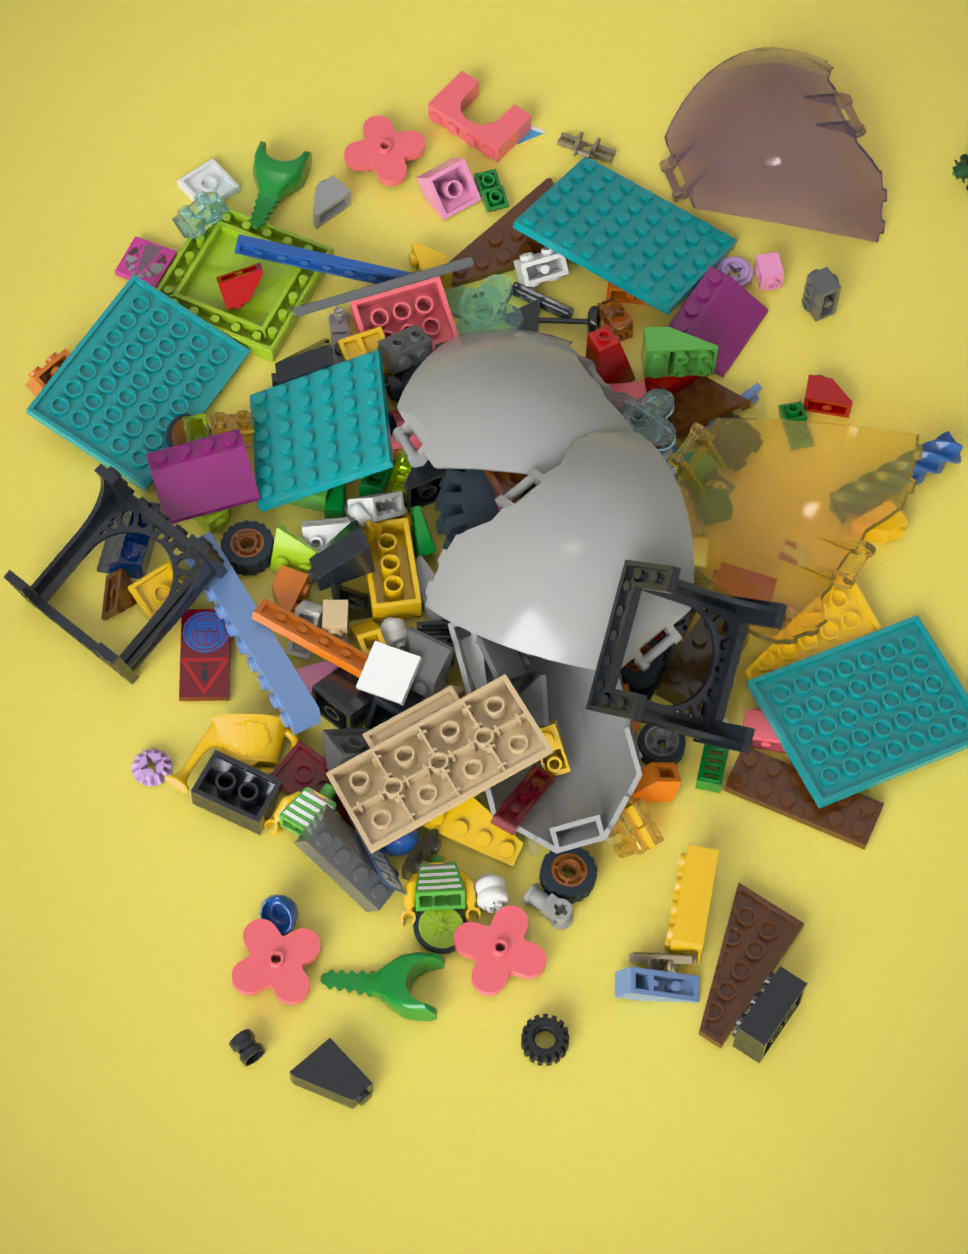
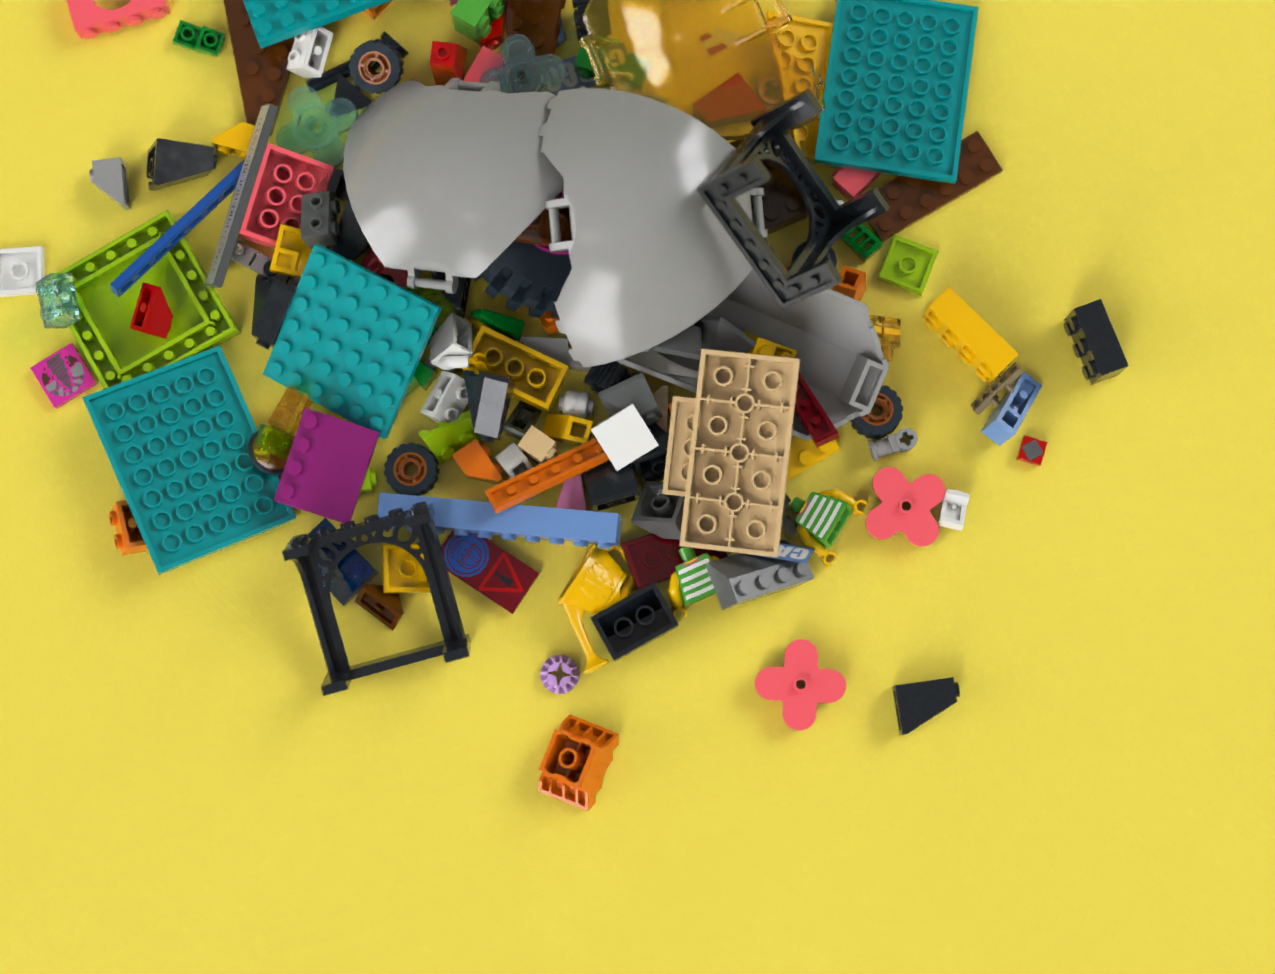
camera: 50 degrees left, 20 degrees up
(83, 824) = (577, 762): none -> orange slope
(247, 1047) = (855, 752): black wheel -> none
(275, 181) = (62, 215): green animal -> none
(280, 911) = (761, 655): blue hair -> none
(377, 233) = (177, 162): none -> black slope
(384, 151) = (89, 115): coral plant -> none
(392, 983) = (874, 610): green animal -> none
(437, 928) = (854, 542): lime wheel -> none
(449, 187) = (171, 71): bright pink slope -> none
(491, 892) = (852, 480): white piece -> none
(528, 993) = (953, 509): none -> white bracket
(544, 1024) = (1008, 511): black tyre -> none
(558, 305) = (362, 69): none -> black wheel
(617, 318) = (401, 25): clear orange leg -> none
(632, 1029) = (1031, 450): none -> tile
(720, 822) = (907, 265): none -> lime tile
(751, 948) = (1030, 319): reddish brown wing -> none

